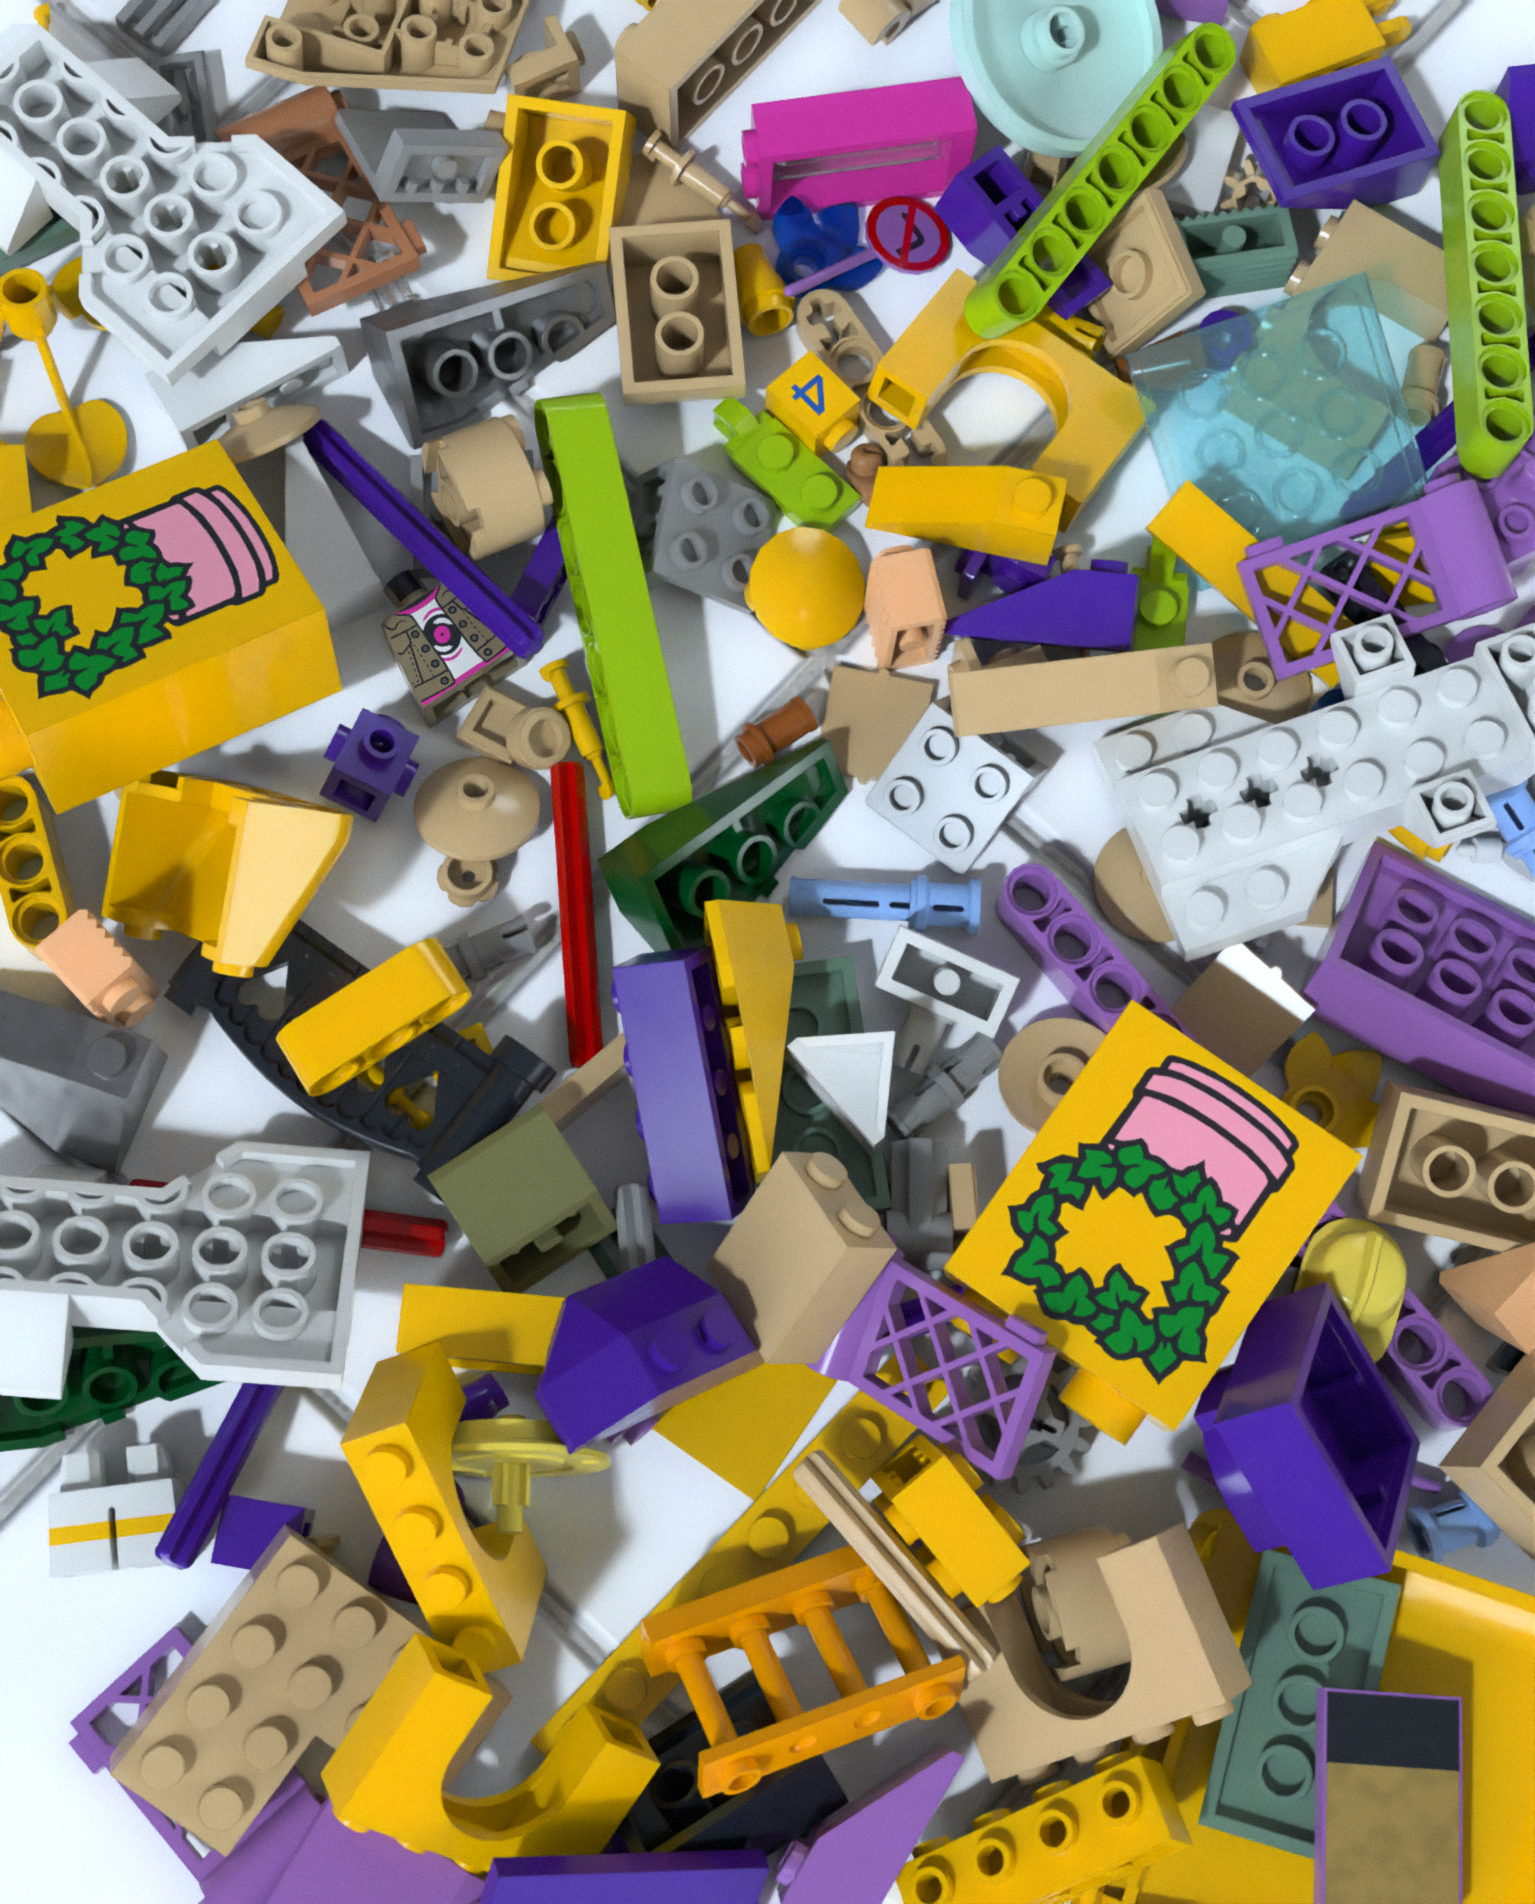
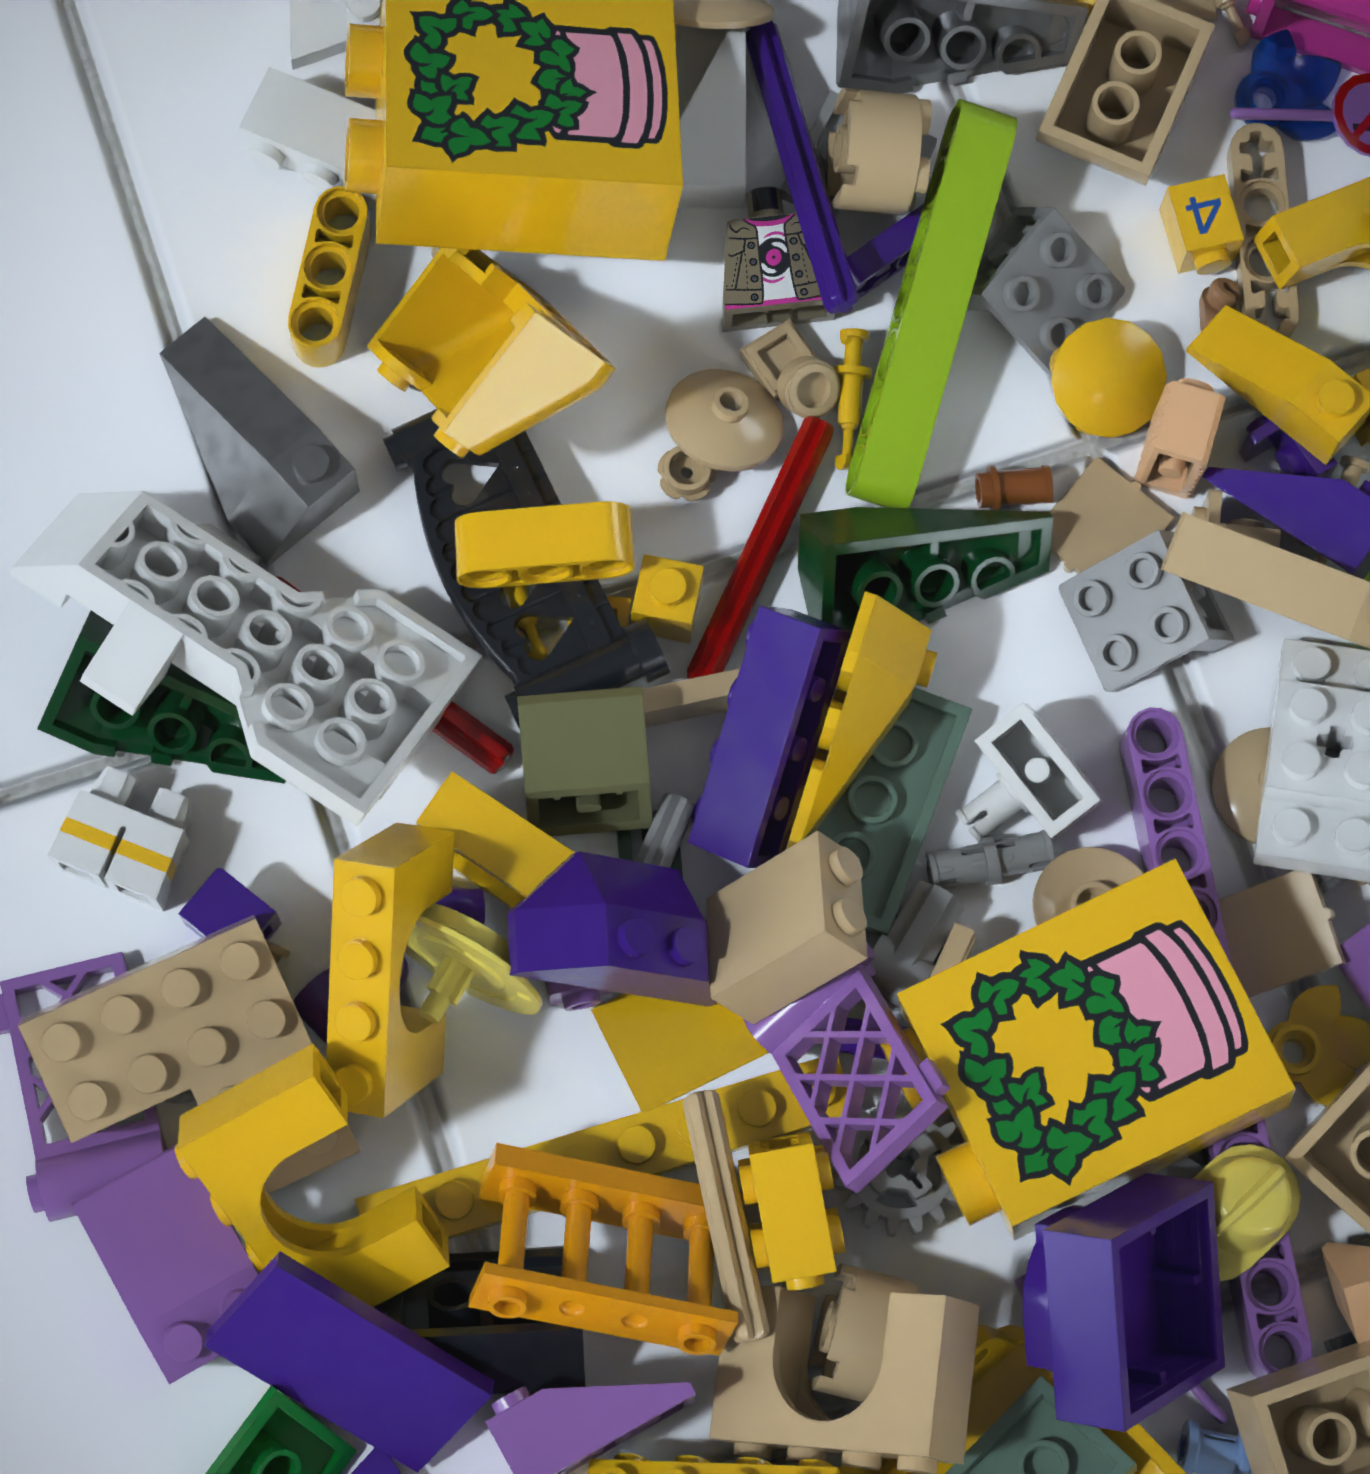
camera: 30 degrees right, 0 degrees up
(99, 971) = (342, 390): light nougat brick -> none
(217, 1474) = (225, 844): dark purple axle -> none
(369, 764) = (654, 334): dark purple brick -> none
(491, 948) = (672, 541): light grey pin -> none
(515, 1002) = (668, 597): none -> yellow brick
(761, 292) = (1211, 99): yellow cone -> none
(784, 468) = (1148, 265): lime hinge -> none
(850, 1078) = (910, 804): white slope -> none
(923, 905) = (1059, 701): light blue pin -> none

